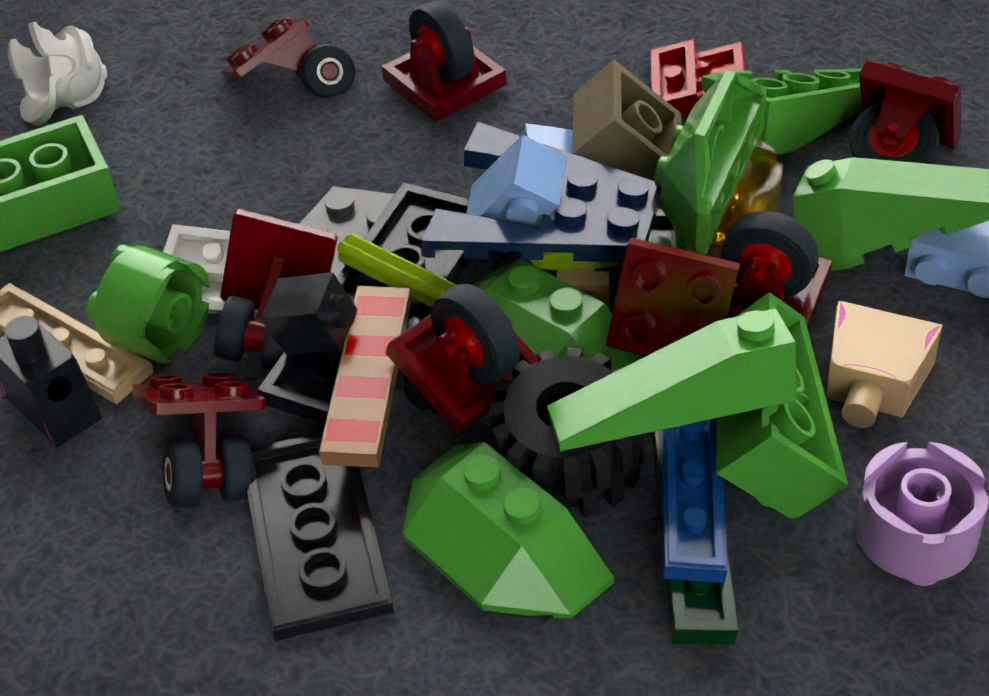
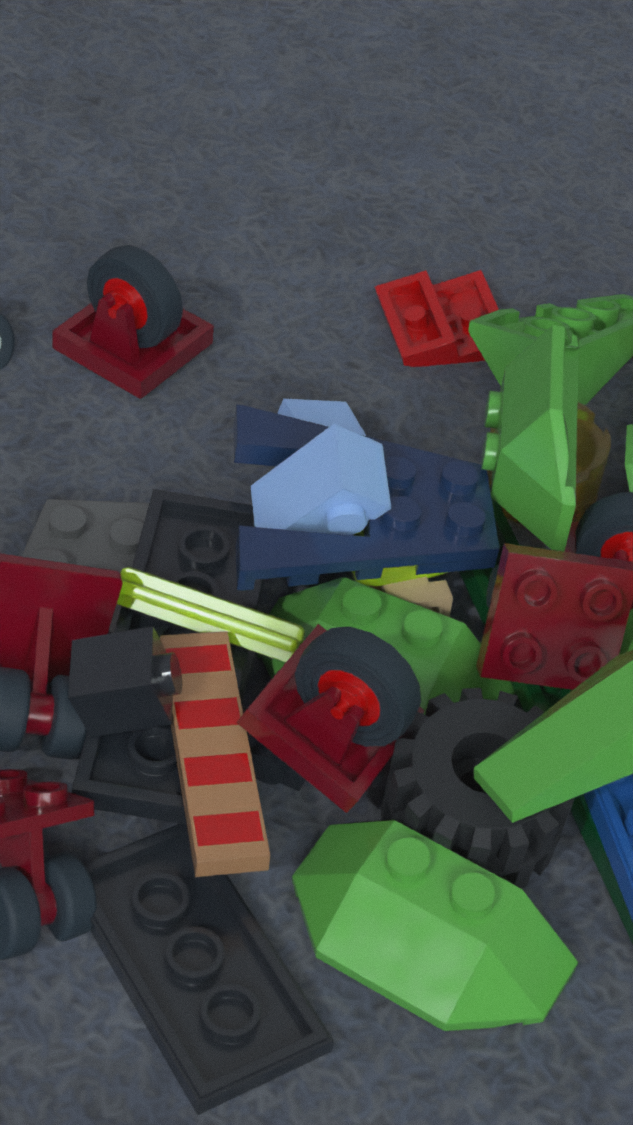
camera: 25 degrees left, 0 degrees up
(622, 122) = (404, 392): dark tan brick -> none

